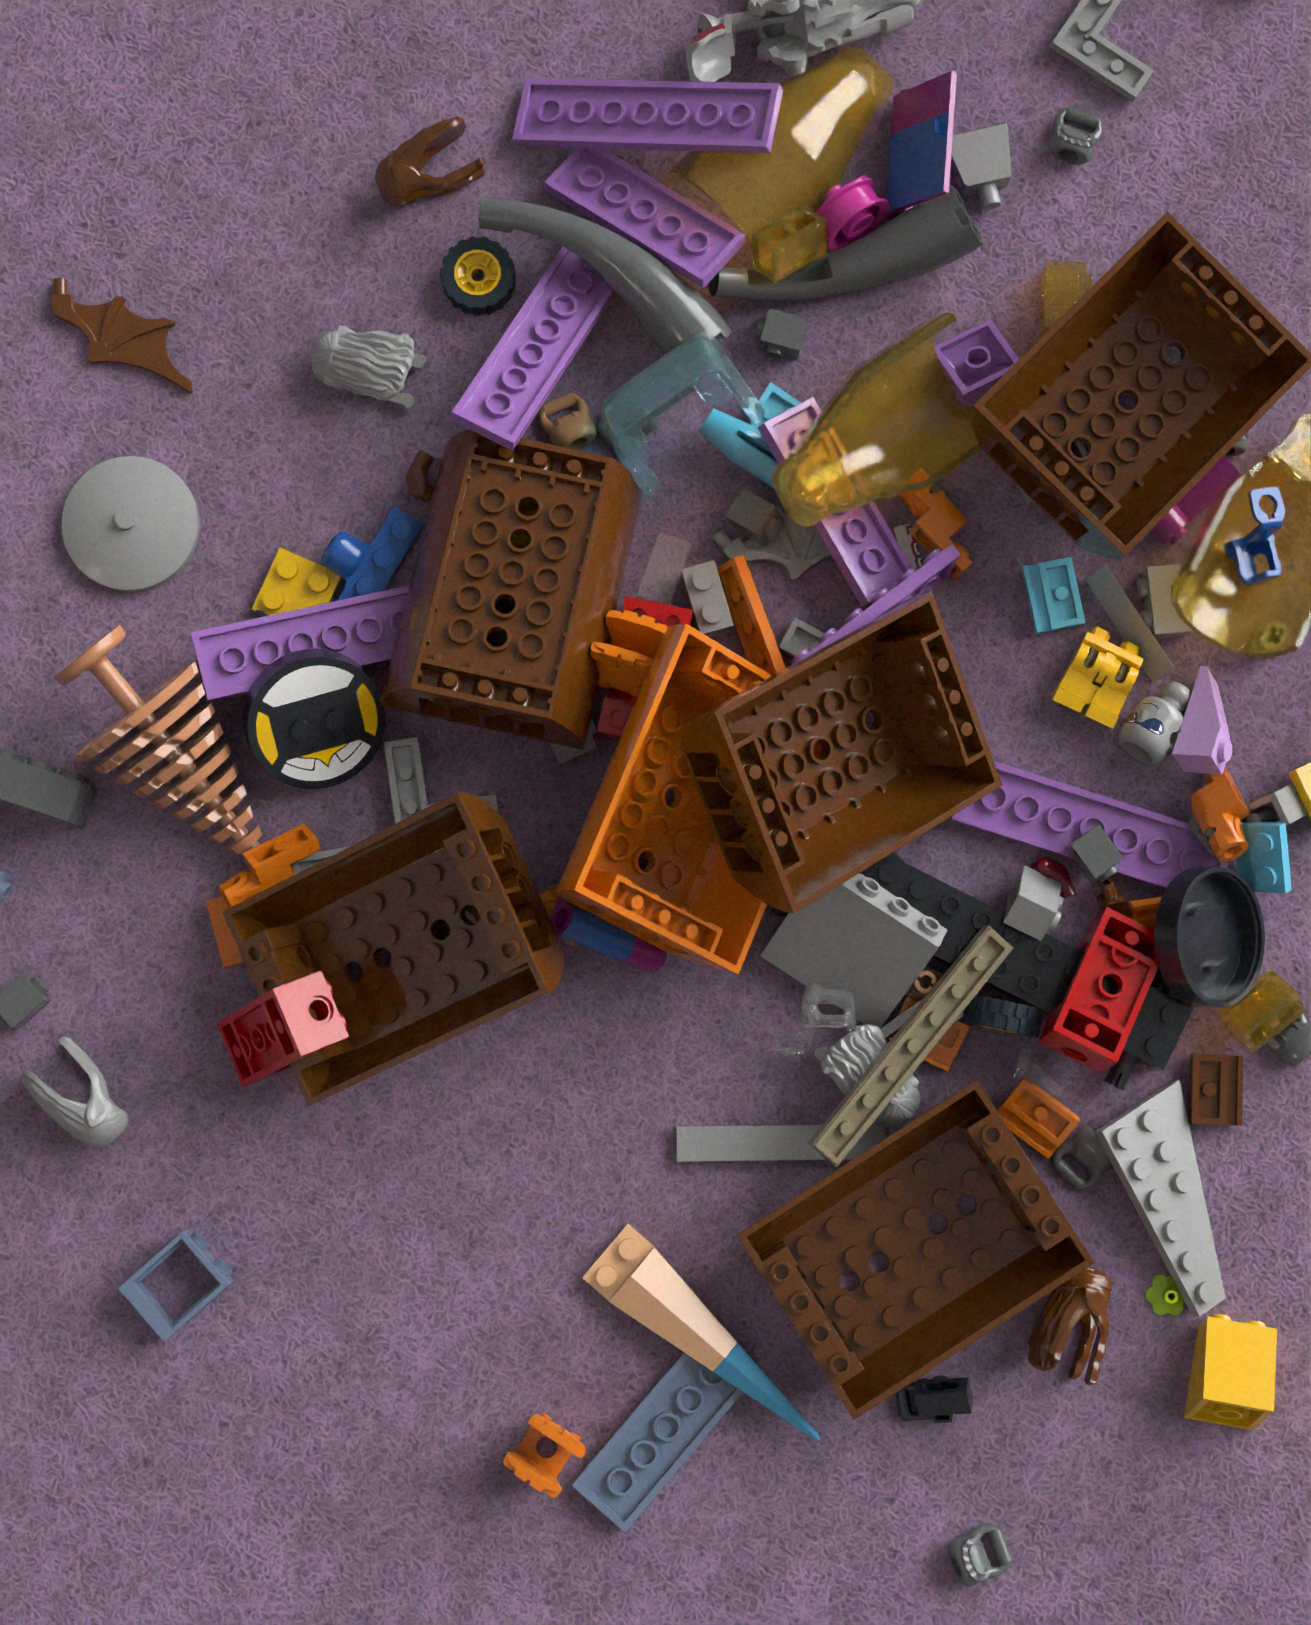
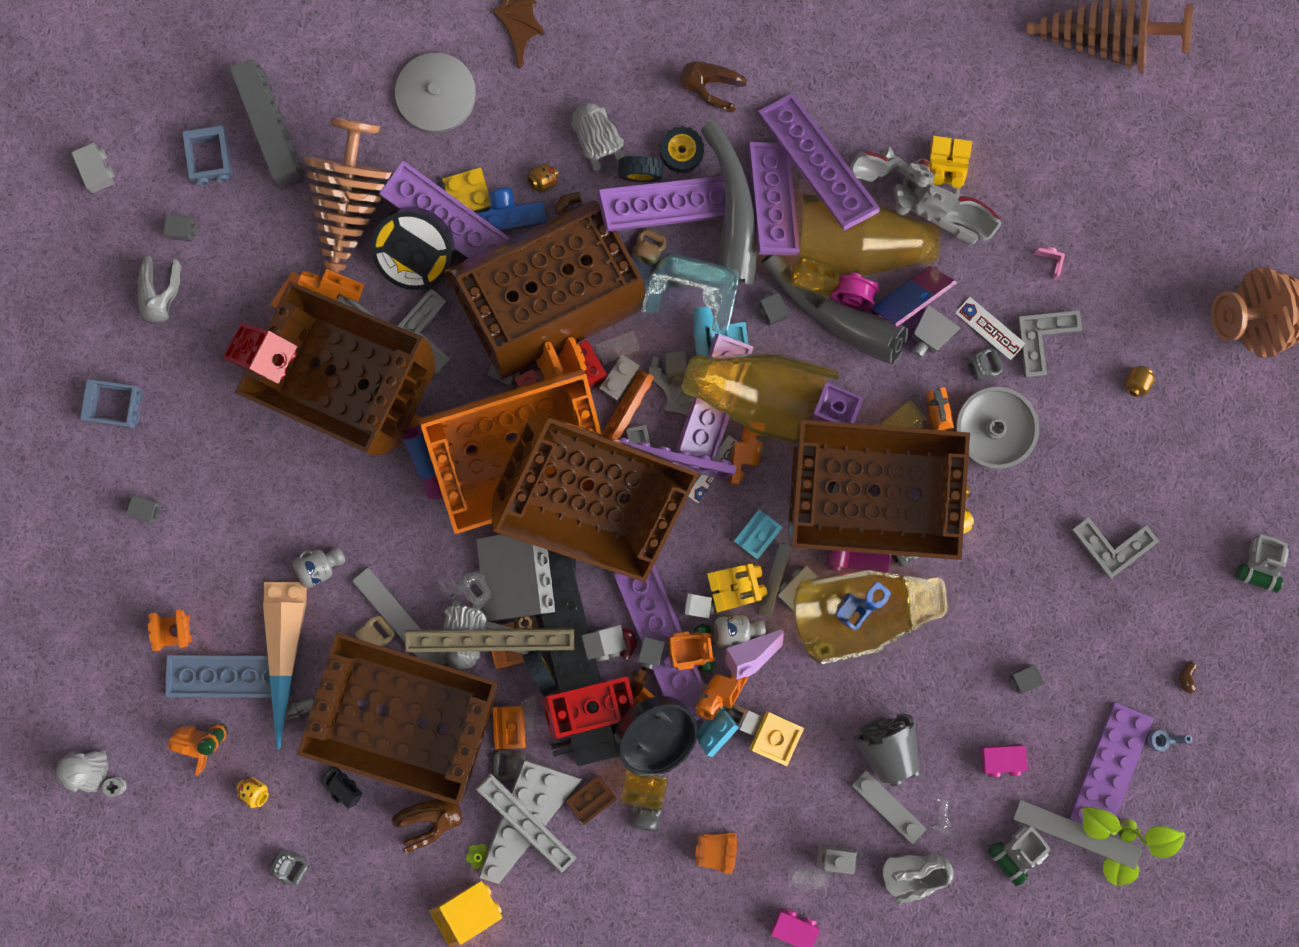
camera: 50 degrees right, 0 degrees up
(351, 1357) = (142, 509): none -> dark grey brick
(362, 480) = (542, 178): none -> pearl gold head
(461, 345) = (640, 169): none -> black wheel
(620, 1191) = (315, 566): none -> light grey piece
(723, 1539) = (197, 743): none -> orange piece
(769, 1196) = (370, 634): none -> tan piece
(786, 1365) = (299, 708): none -> light grey pin
(844, 1521) = (252, 792): none -> yellow head
(1035, 90) = (990, 328): none -> white sticker
(1083, 746) = (699, 606): none -> light grey slope
(1090, 240) = (939, 410): none -> orange plate
(1134, 798) = (692, 649): none -> orange piece
(1174, 170) = (1000, 427): none -> light grey dish
(1179, 1196) = (525, 822): none -> light grey tile

